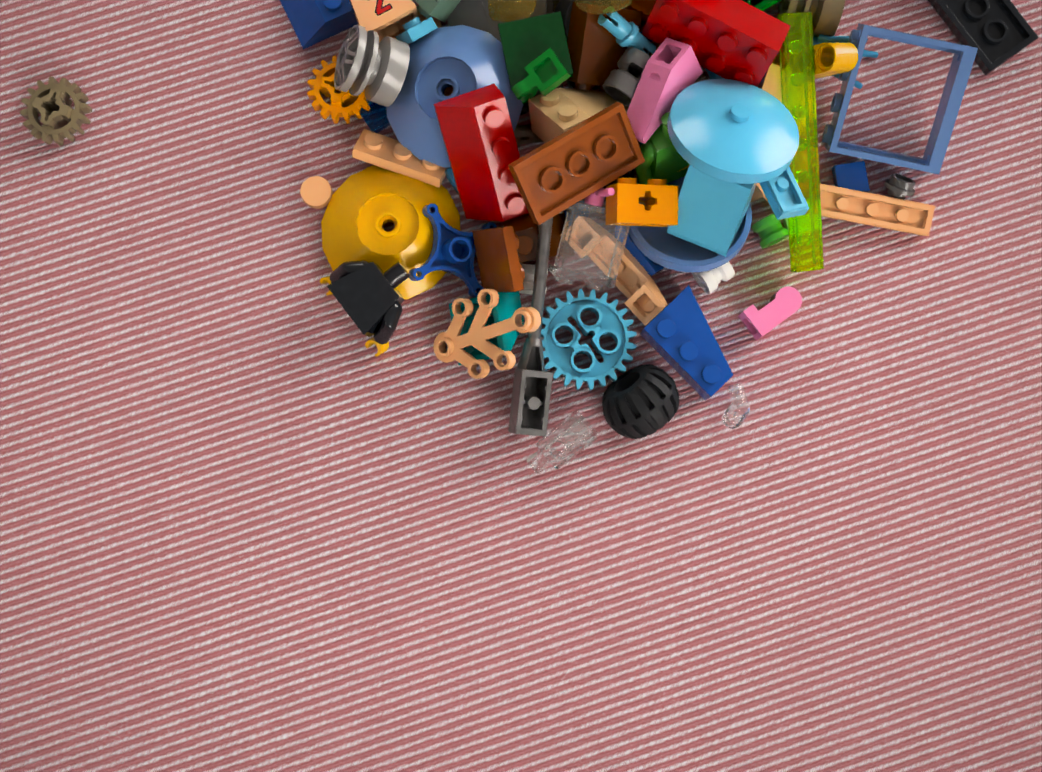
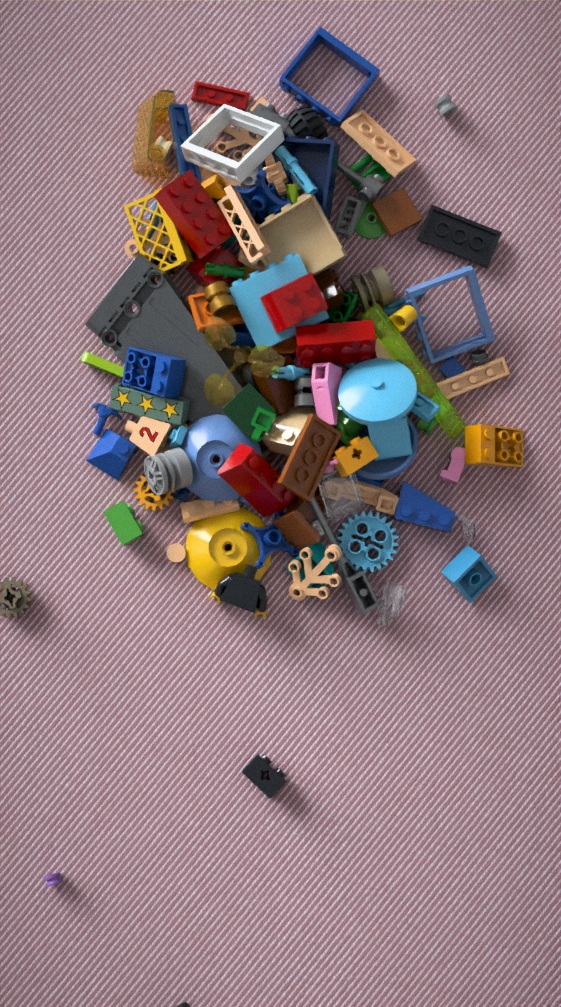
camera: 25 degrees left, 0 degrees up
(227, 554) = (267, 786): none -> black brick
(270, 105) = (124, 523): none -> bright green brick
(640, 401) = (416, 556): black wheel -> none
(698, 472) = (469, 573): none -> dark azure slope
(710, 279) = (412, 470): white wheel -> none
(844, 318) = (493, 446): none -> light orange slope

